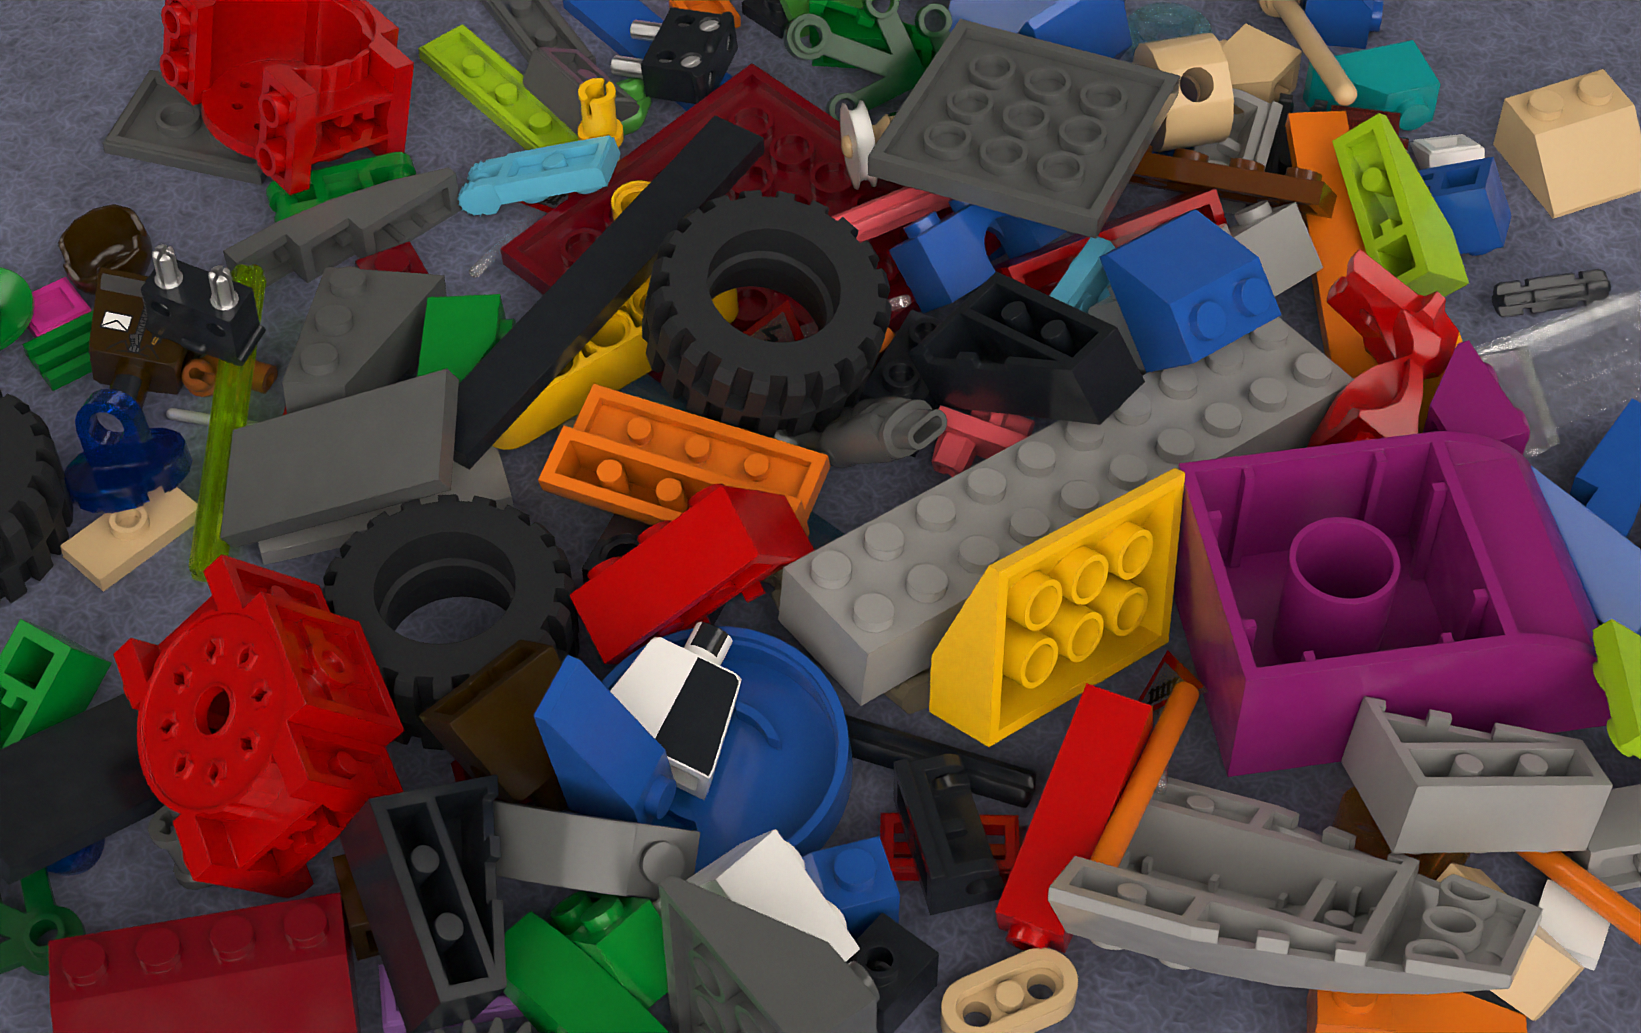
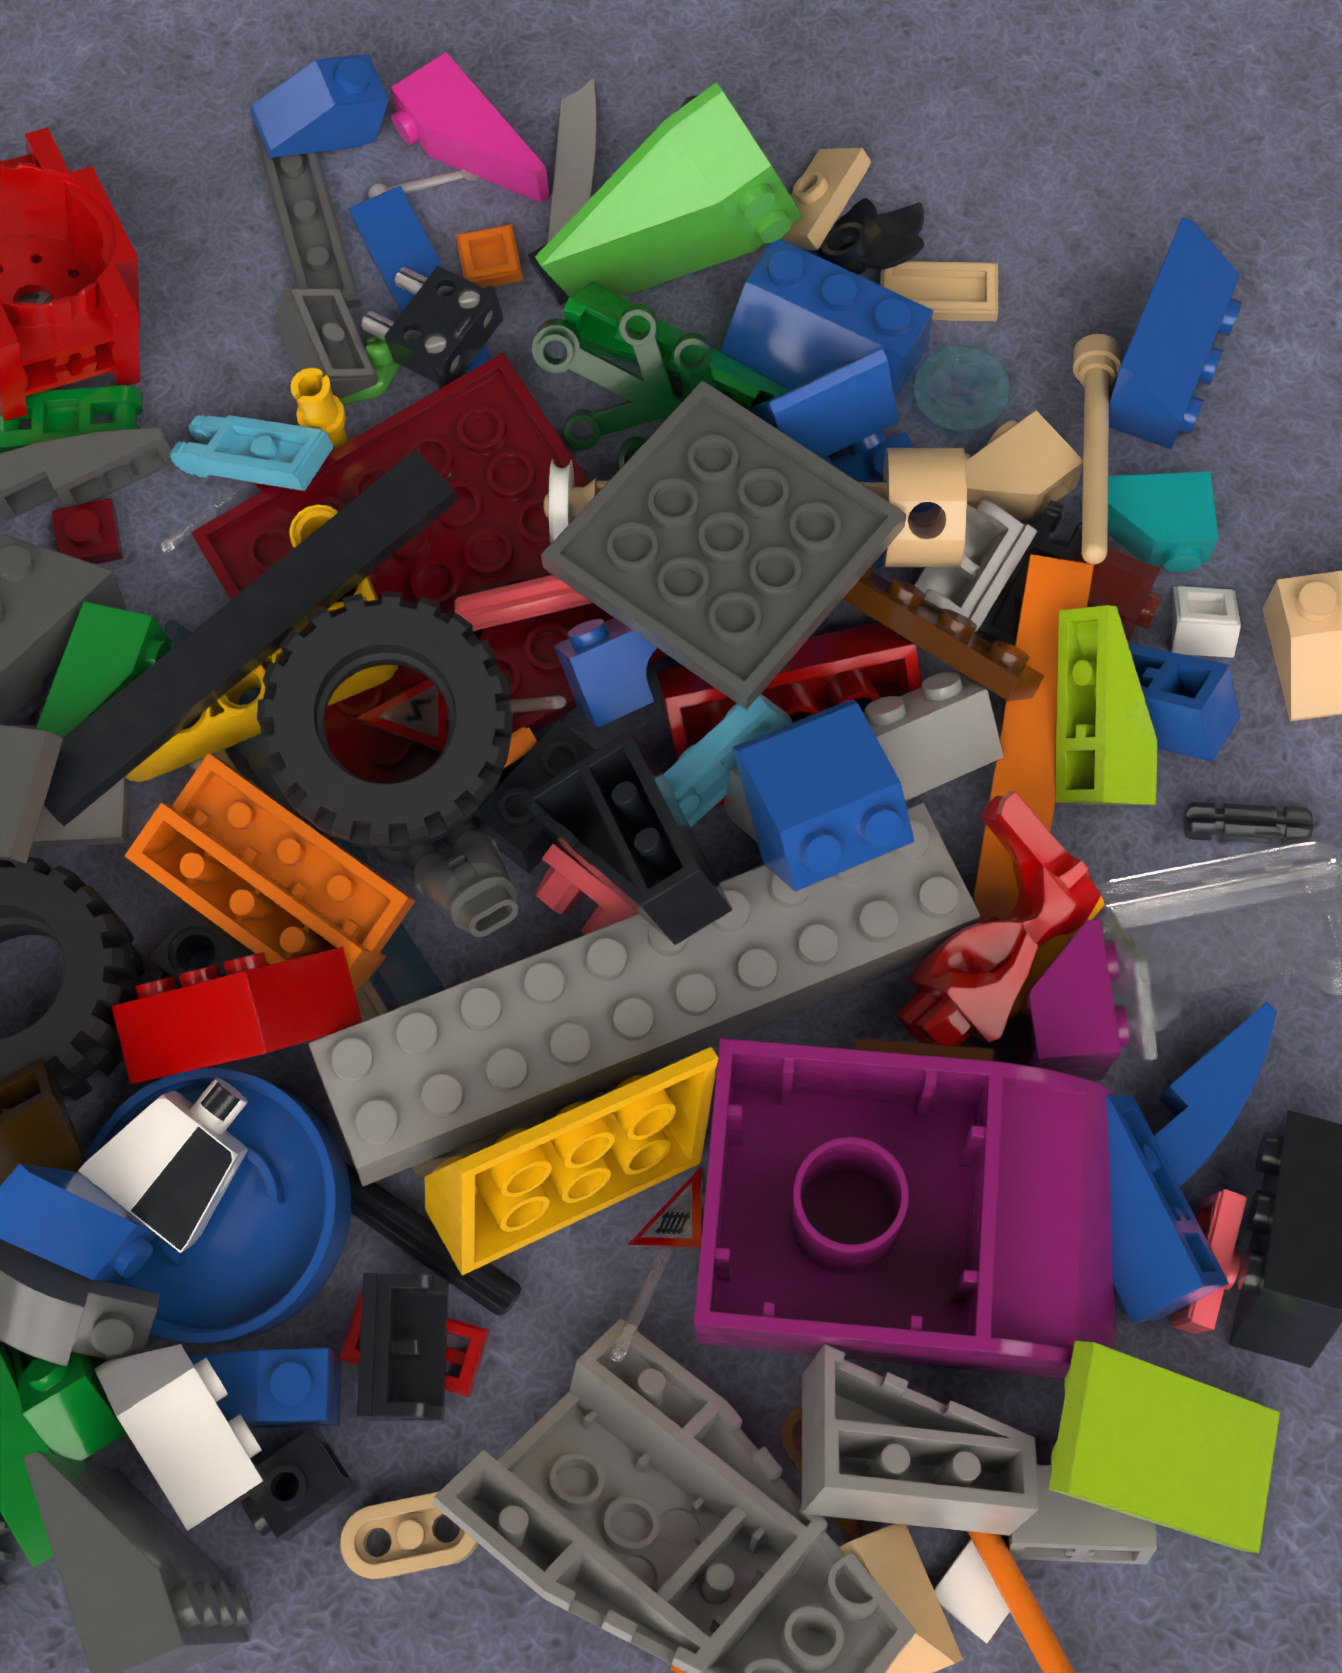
camera: 20 degrees right, 20 degrees up
(494, 88) = (248, 312): lime tile -> none
(1072, 811) = (532, 1358): red slope -> none
(1146, 775) = (594, 1357): orange piece -> none

